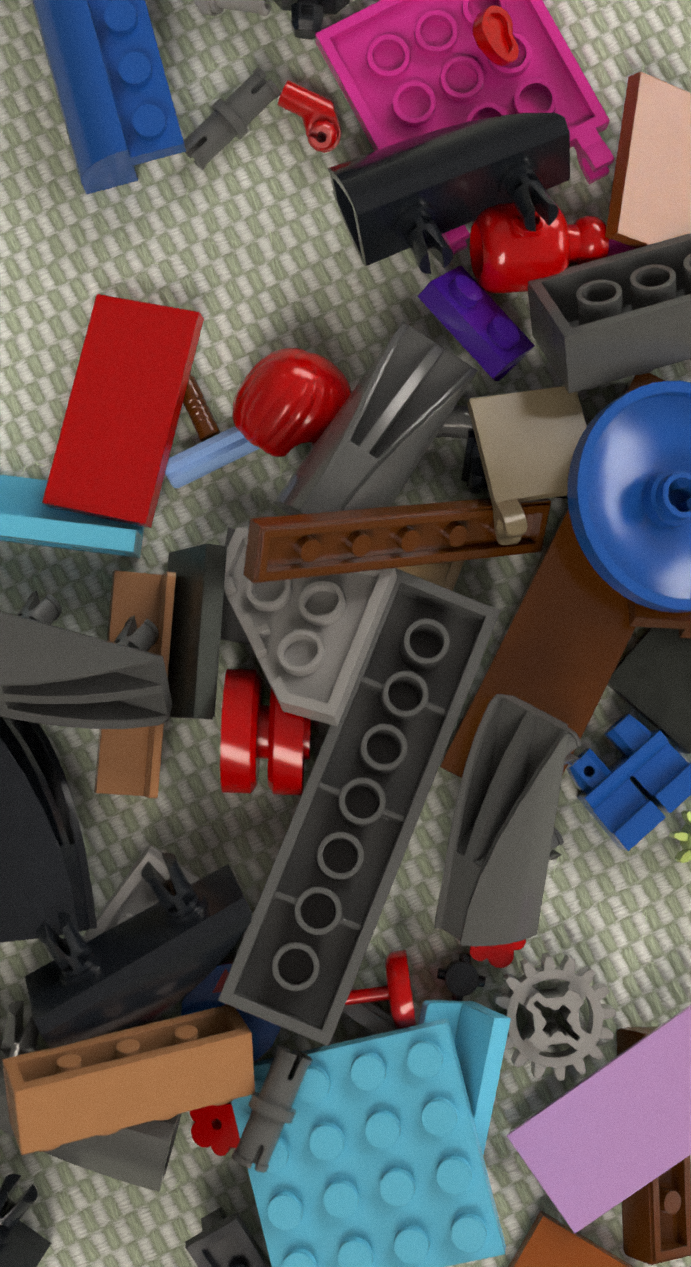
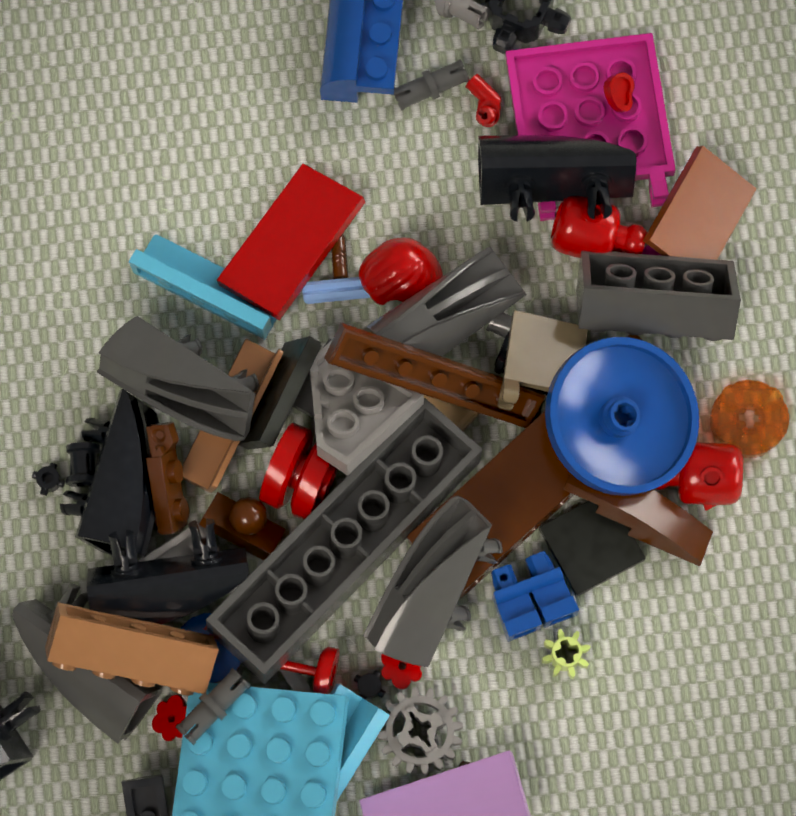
camera: 30 degrees right, 10 degrees down
(82, 809) = (166, 478): none -> reddish brown hinge
(211, 830) = (244, 524): none -> reddish brown tile
(476, 322) = (539, 266): dark purple bracket -> none

